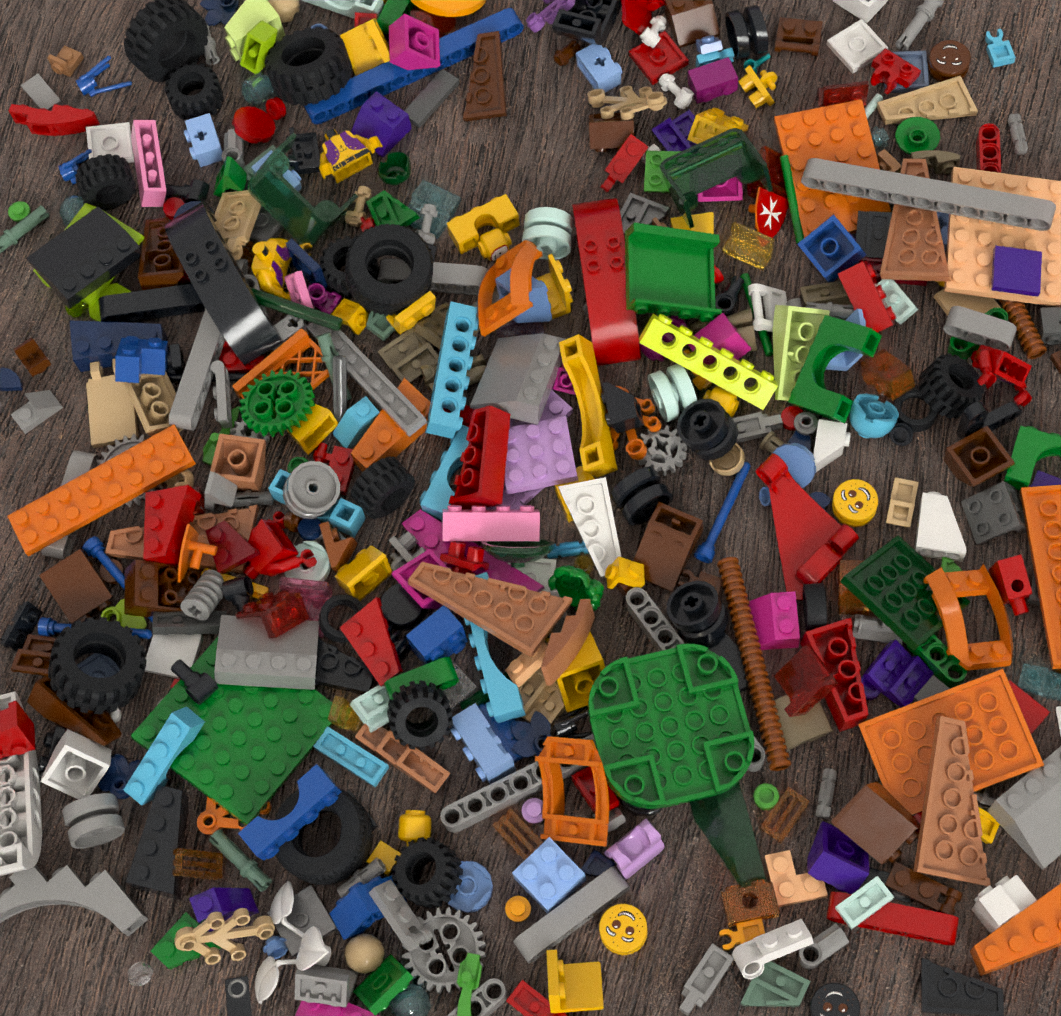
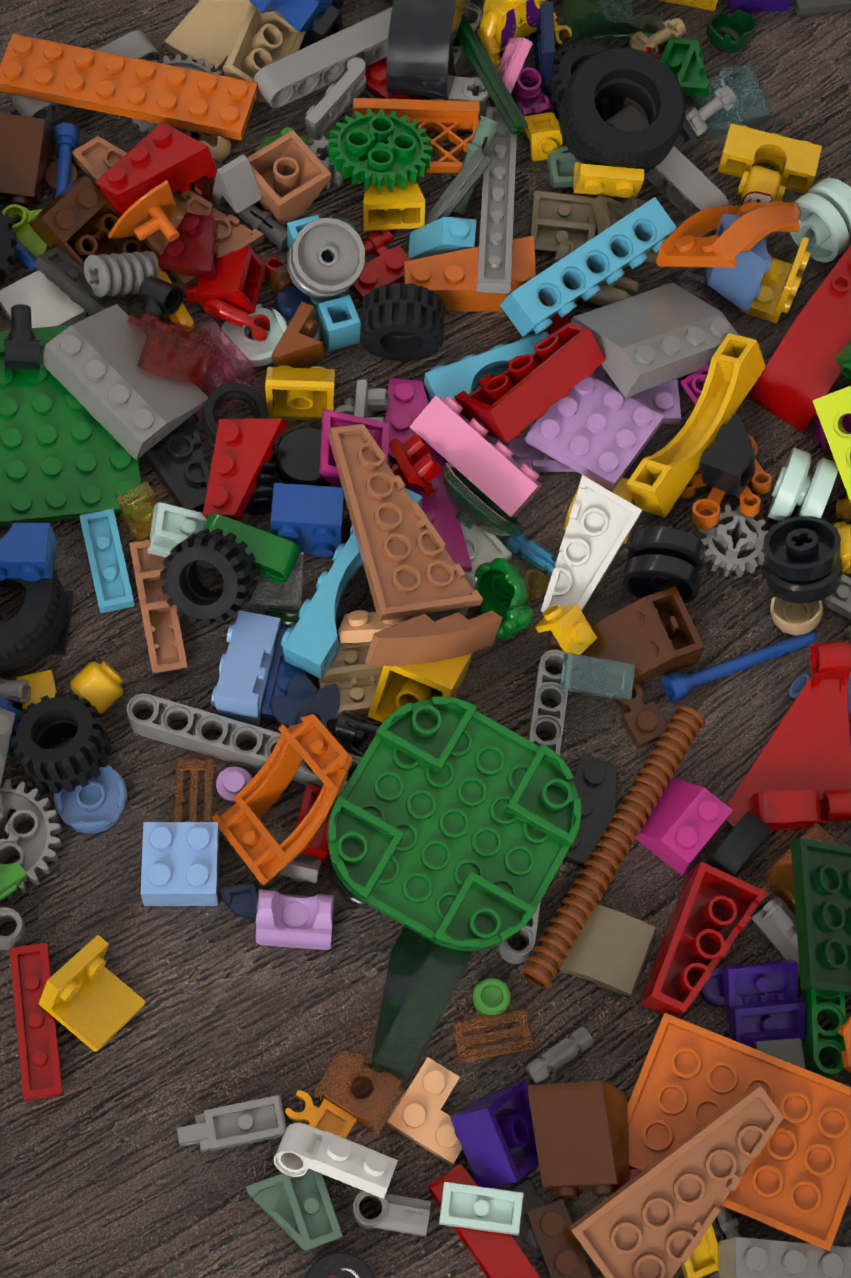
camera: 25 degrees right, 0 degrees up
(518, 908) = (117, 867): light orange plate -> none
(571, 914) = (165, 925): light grey beam -> none
(623, 929) = (202, 991): yellow head -> none
(663, 584) = (597, 676): none -> clear light blue plate
(697, 612) = (604, 737): black wheel -> none
(805, 681) = (649, 913): clear red bracket -> none

